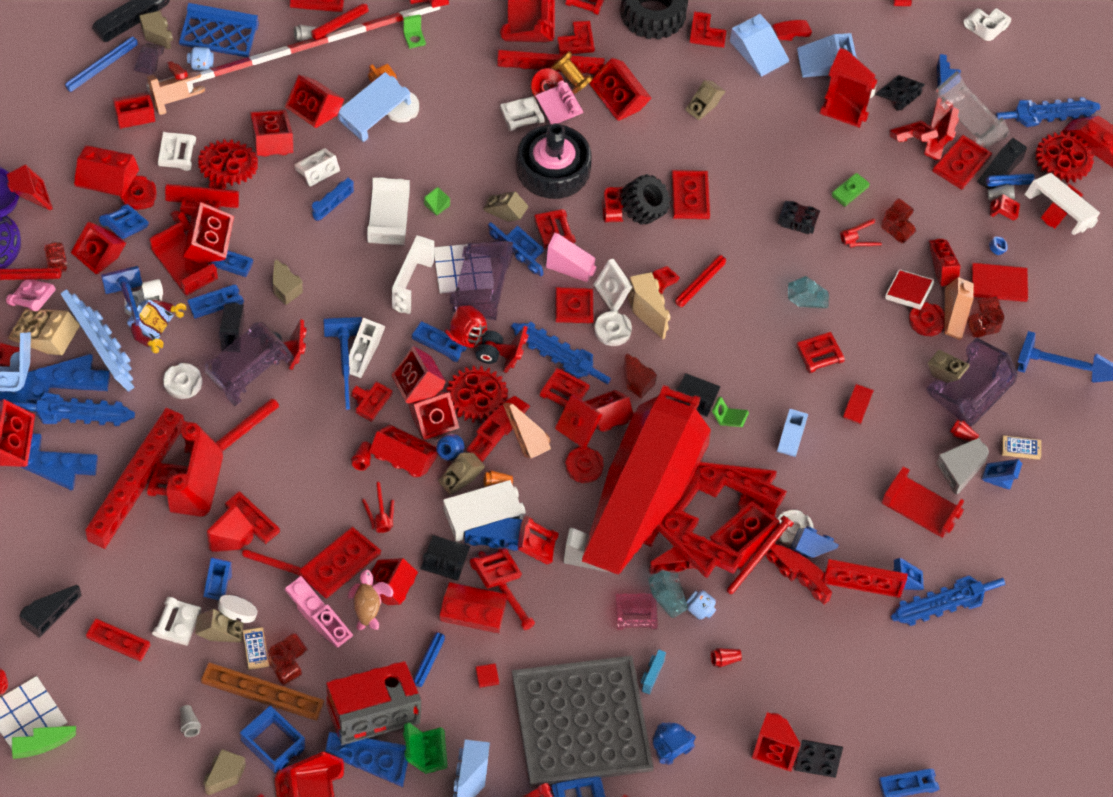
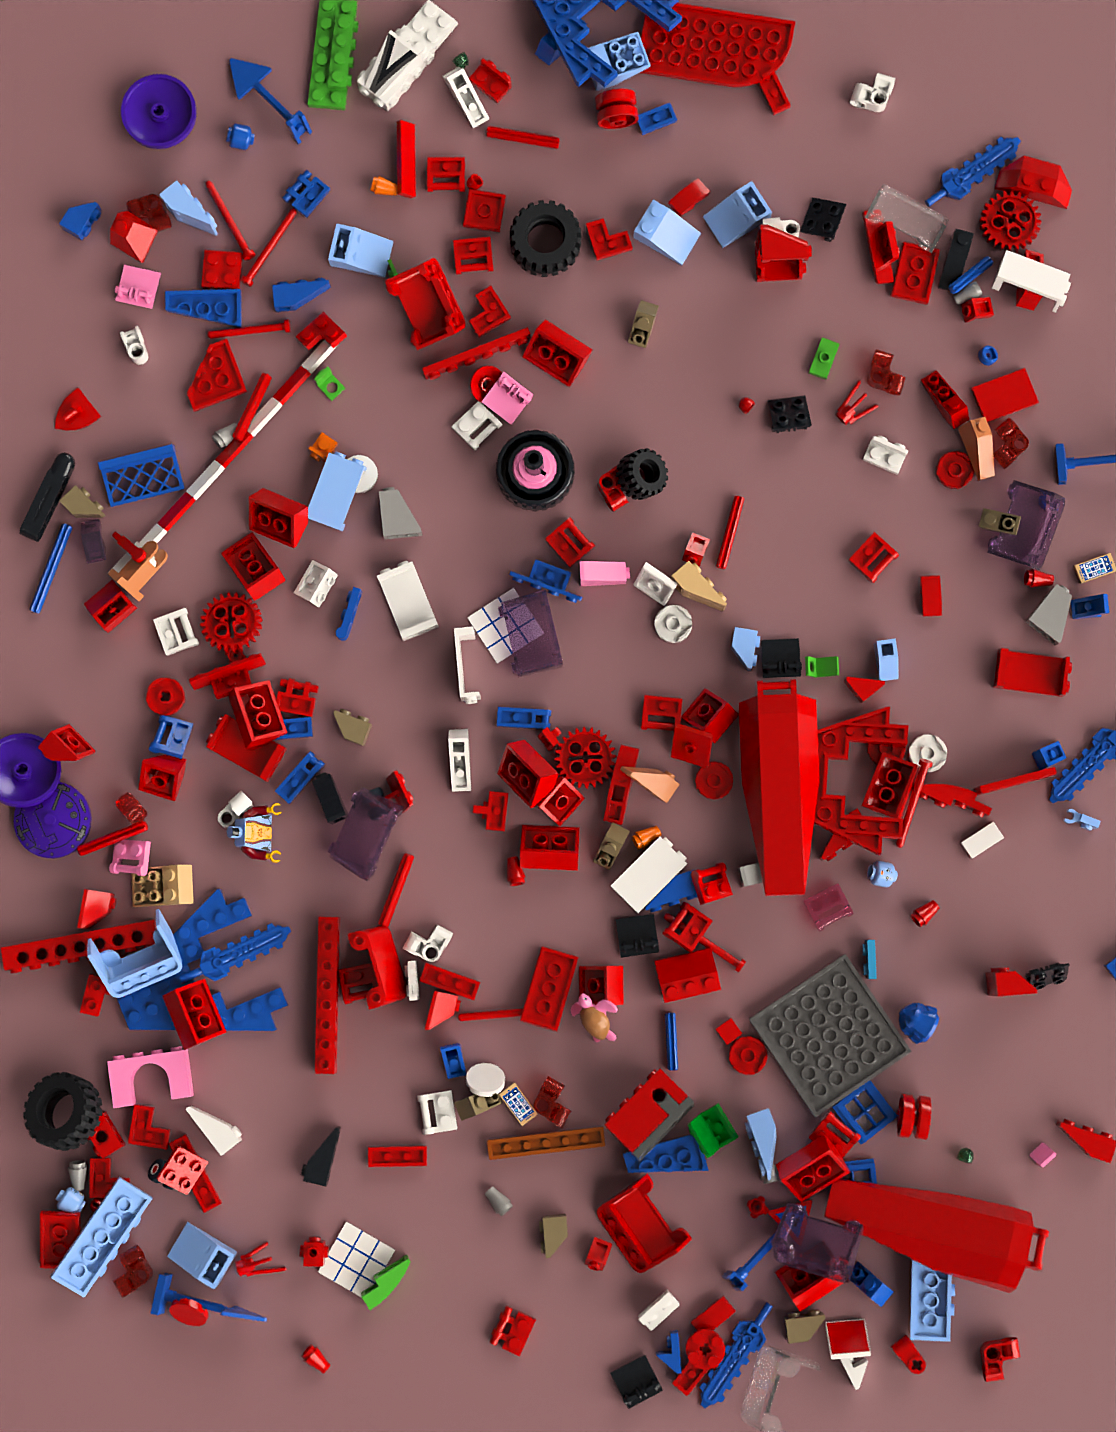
camera: 15 degrees left, 25 degrees up
(101, 339) = (220, 874): light blue plate -> none
(105, 170) = (124, 692): red slope -> none
(123, 281) = (203, 801): blue piece -> none
(180, 217) = (220, 705): red tile -> none
(182, 381) = (314, 873): white tile -> none
(200, 58) = (142, 518): light blue head -> none
(217, 501) = (413, 988): none -> white wing
(247, 246) = (294, 703): none -> red plate
(260, 479) = (418, 945): none -> white piece
(262, 722) = (602, 1183): blue window -> none
(318, 613) = (556, 1047): bright pink slope -> none
(343, 329) = (431, 750): blue piece -> none
(382, 522) = (566, 929): red plant -> none
(415, 147) = (396, 516): none -> light grey slope
(437, 201) = (446, 567): bright green slope -> none
(450, 446) = (589, 826): blue head -> none
(453, 364) = (549, 738): none -> red tile
(467, 322) = (542, 695): red piece -> none
(493, 346) = (600, 702): plate -> none
(494, 705) = (748, 1055): none -> red tile
(506, 206) = (513, 541): dark tan slope -> none
(571, 72) = (493, 357): pearl gold piece -> none
(574, 305) = (627, 618): red plate -> none
(575, 362) = (657, 677): blue bar -> none
(638, 377) = (720, 668): clear red slope -> none
(668, 592) = (849, 877): clear light blue slope -> none
(669, 367) = (744, 646): none -> light blue slope
(690, 194) = (677, 438): red tile -> none
(761, 448) = (862, 687): none -> red slope
(764, 194) = (746, 404): none -> red hinge
(808, 293) = (836, 500): clear light blue slope -> none
(810, 621) = (982, 840): none -> white tile
(811, 544) = (953, 767): slope -> none
(870, 280) = (885, 454): none -> white bracket
(909, 289) = (926, 447): red tile -> none
(916, 644) = (1086, 822): none -> light blue plate
(917, 129) = (857, 260): red plate -> none
(944, 70) = (858, 181): blue slope -> none

